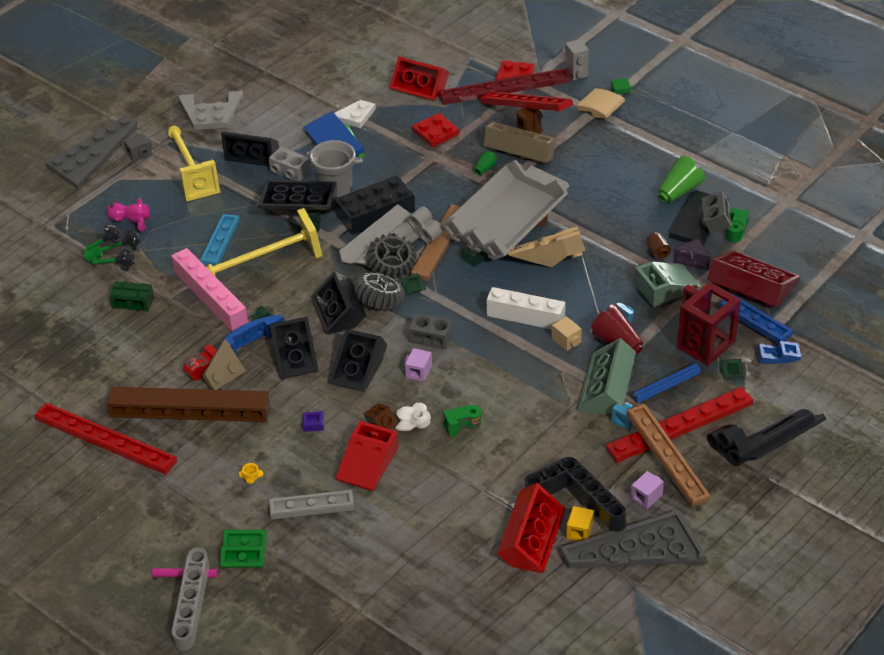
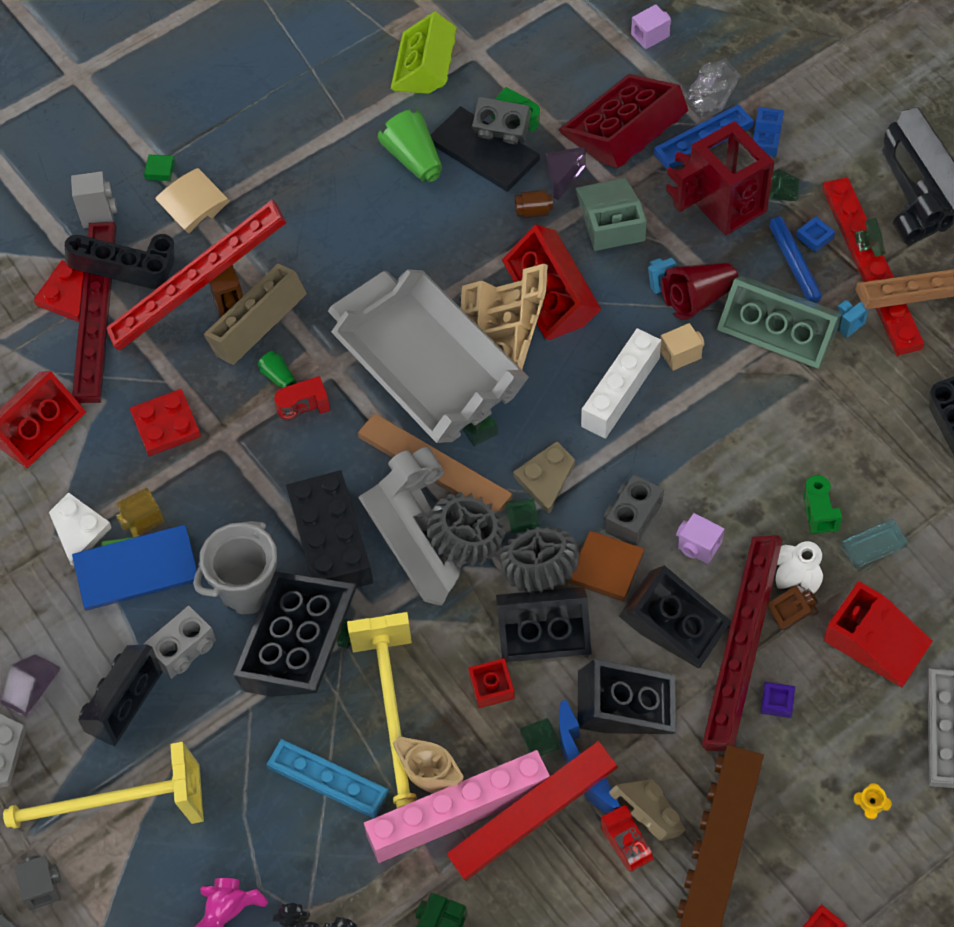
camera: 75 degrees left, 15 degrees up
(211, 317) = (532, 810): none -> red tile
(229, 267) = (427, 764): none -> tan hat
(254, 118) = (27, 683): none -> clear purple slope
(293, 290) = (491, 683): none -> red piece
(337, 395) = (742, 643): none -> dark red tile
(368, 131) = (139, 513): none -> clear yellow brick
(391, 327) = (607, 566): none -> dark orange tile
(442, 453) = (874, 543): none -> clear light blue tile
(448, 291) = (546, 475): none -> dark tan wing
(468, 176) = (301, 398): none -> red leg
(536, 78) = (121, 262): none -> black beam
(597, 265) = (568, 298): none -> red slope
(692, 388) = (815, 234): none -> blue plate
(692, 410) = (871, 238): none -> clear green tile
(764, 174) = (424, 55): none -> lime slope
(799, 312) = (712, 88): none -> clear brick
(846, 276) = (651, 26): none -> lavender brick

